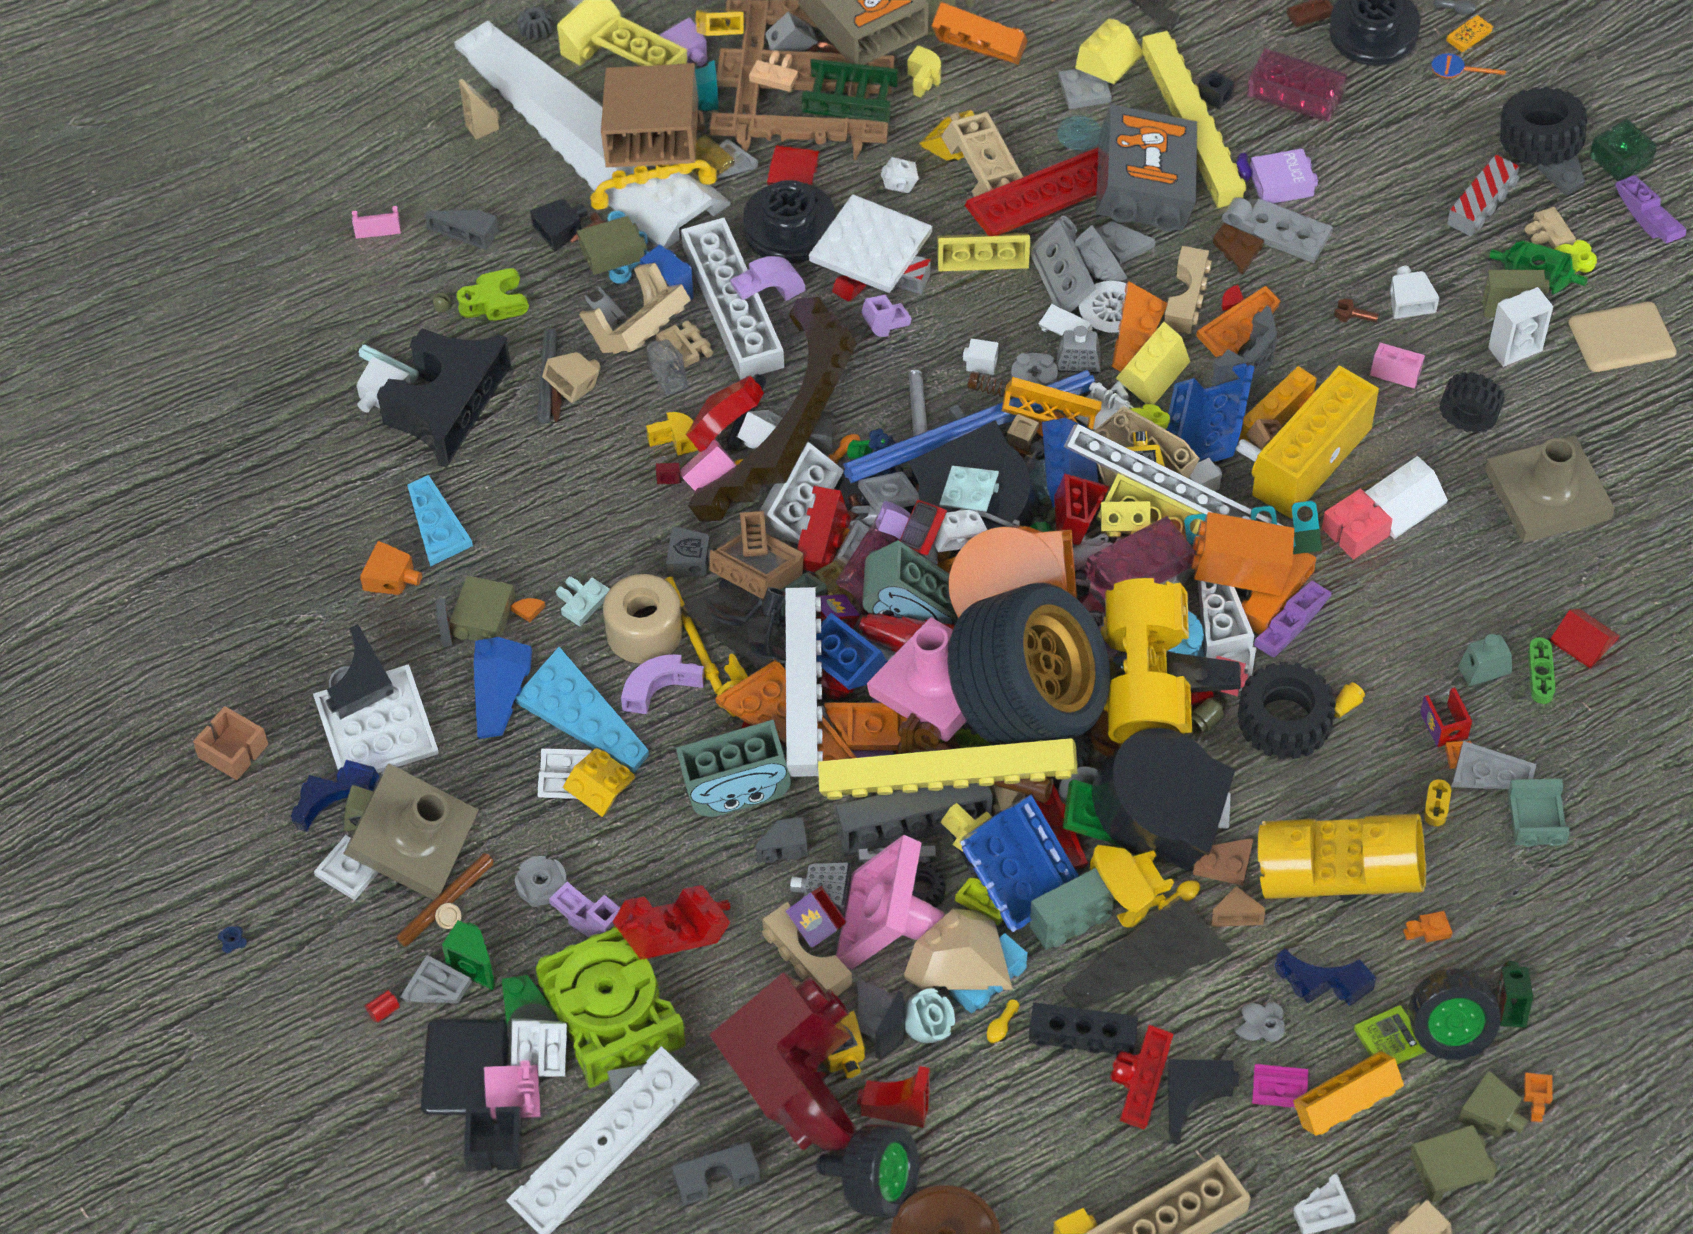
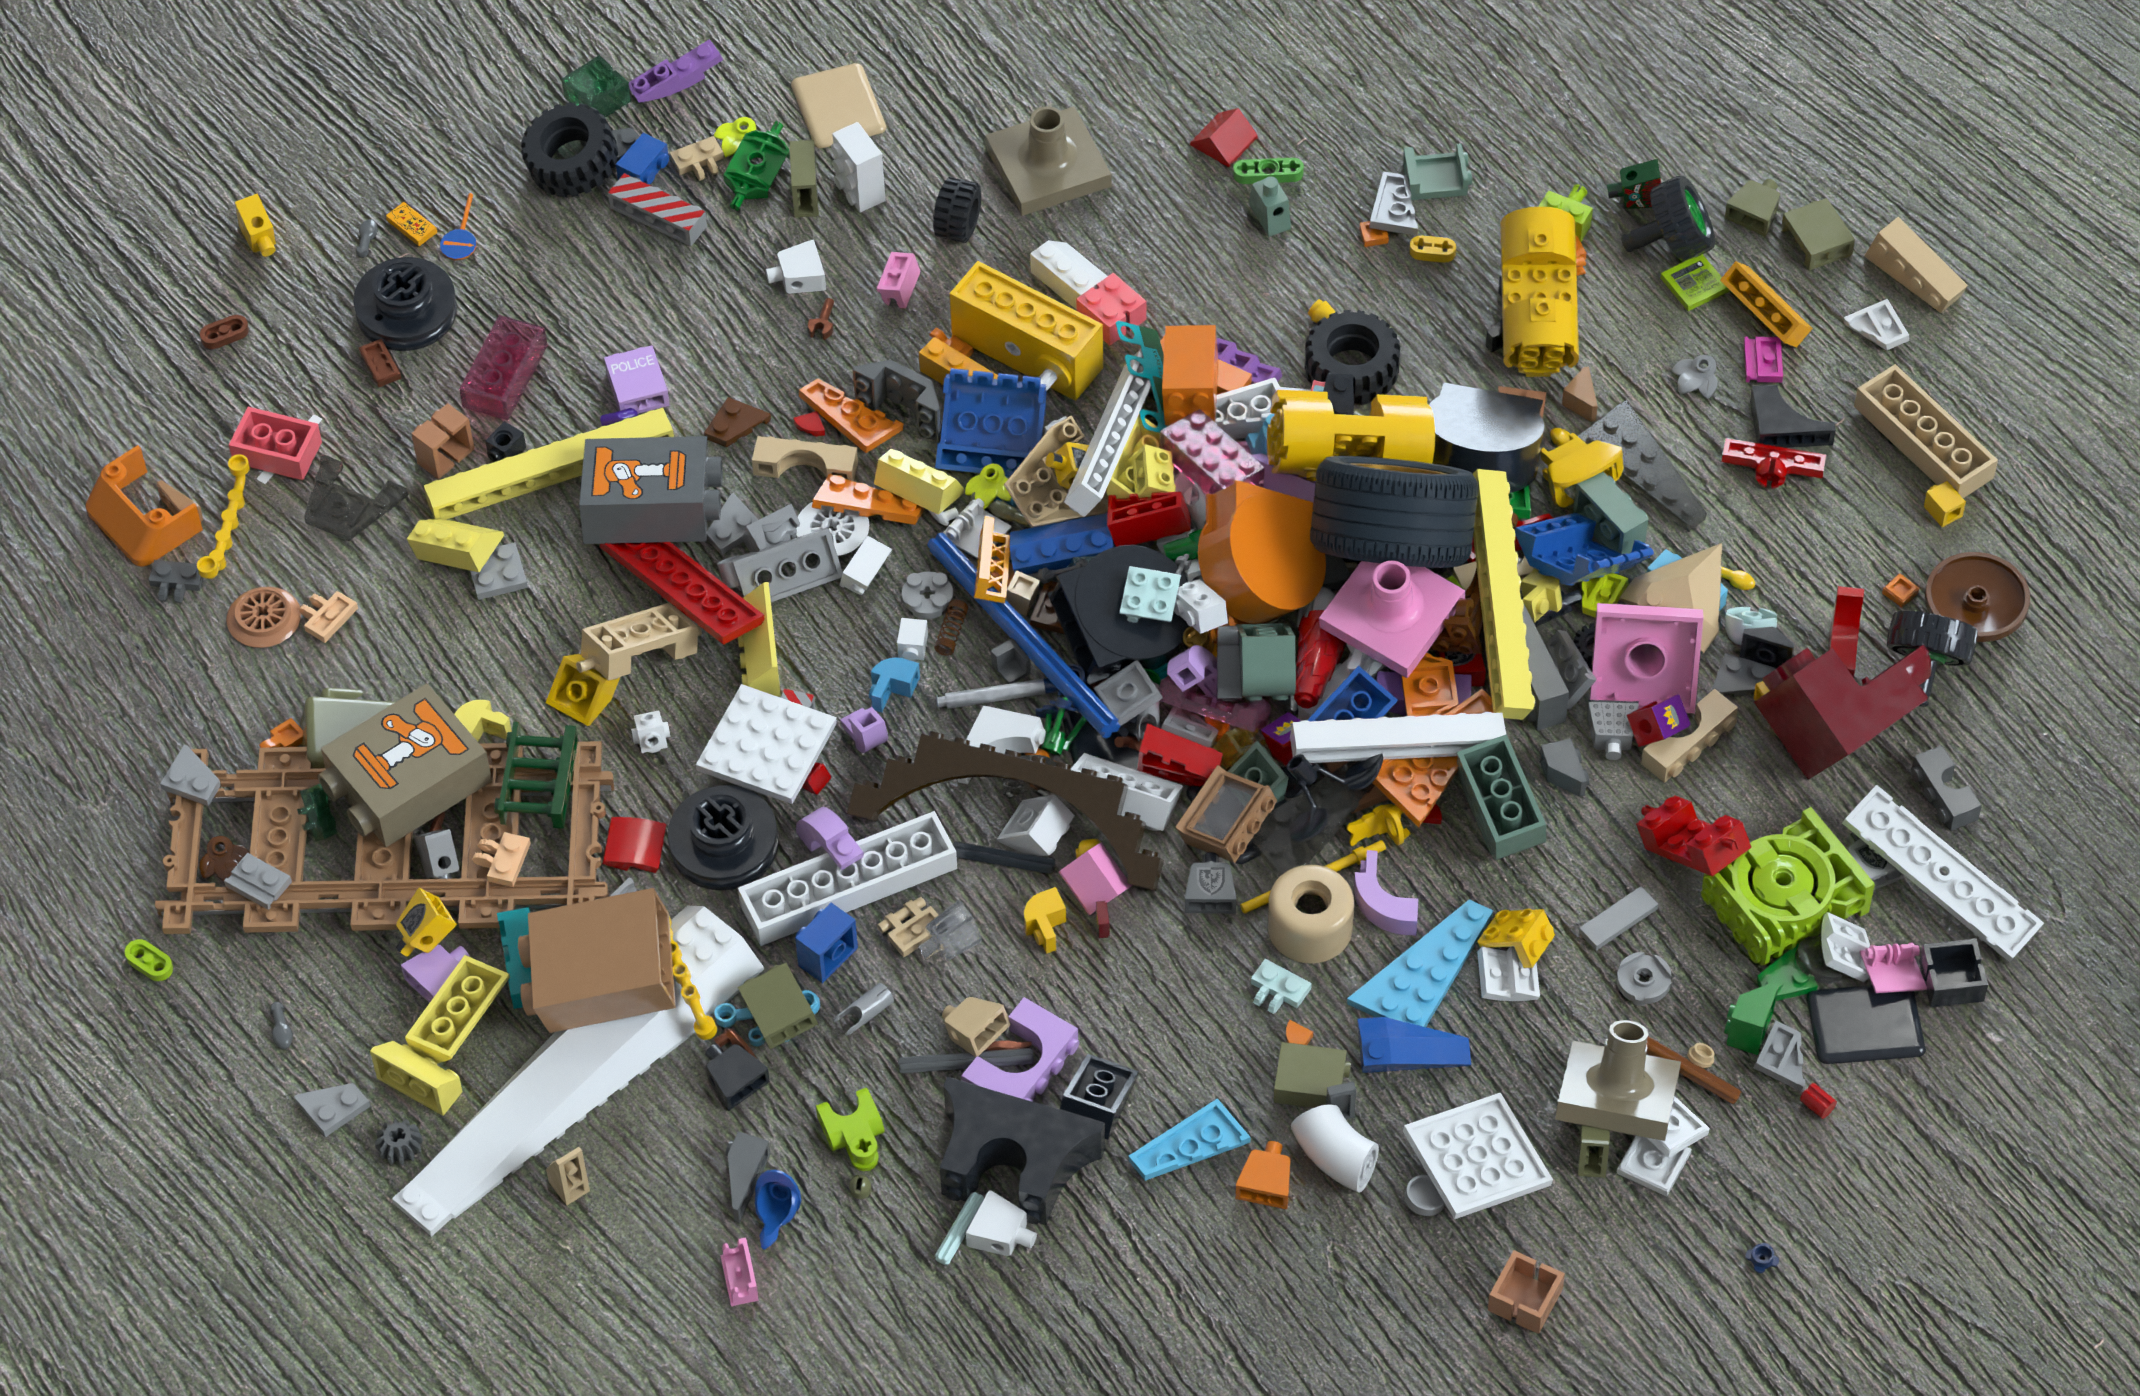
camera: 95 degrees left, 0 degrees up
(320, 793) = (1578, 1194): clear blue arch -> none
(364, 681) = (1439, 1156): black arch -> none
(373, 887) = (1682, 1131): none -> white tile
(399, 617) = (1336, 1146): none -> white brick
(433, 244) = (775, 1203): none -> blue piece
(493, 458) = (1099, 1091): none -> black slope
(548, 432) = (1046, 1032): none -> lavender arch
(582, 913) = (1689, 917): lavender arch -> none
(612, 870) = (1618, 918): none -> light grey tile
(659, 305) = (909, 957): tan piece -> none
(722, 410) = (1017, 863): red arch -> none
(749, 519) = (1190, 822): medium nougat slope -> none
(869, 405) = (1006, 731): none -> white arch
(922, 527) = (1210, 628): tile -> none
(939, 340) = (893, 676): none -> dark azure brick
(971, 1175) = (1900, 590): none -> orange tile
(978, 34) = (430, 658): orange wedge -> none
(1074, 1019) = (1734, 507): black brick -> none
(1078, 133) = (566, 582): clear light blue dish -> none
(1079, 351) = (904, 541): light grey torso -> none
(1211, 36) = (447, 431): none -> nougat piece
(1244, 213) = (713, 397): light grey hinge -> none
(1263, 432) = (1023, 367): medium nougat slope -> none
(1310, 981) = (1646, 310): clear blue arch -> none
(1435, 726) = (1336, 227): red piece -> none
(1478, 921) = (1572, 205): none -> lime brick
(1538, 1091) = (1731, 175): orange plate -> none
(1540, 185) = (643, 159): none -> blue brick

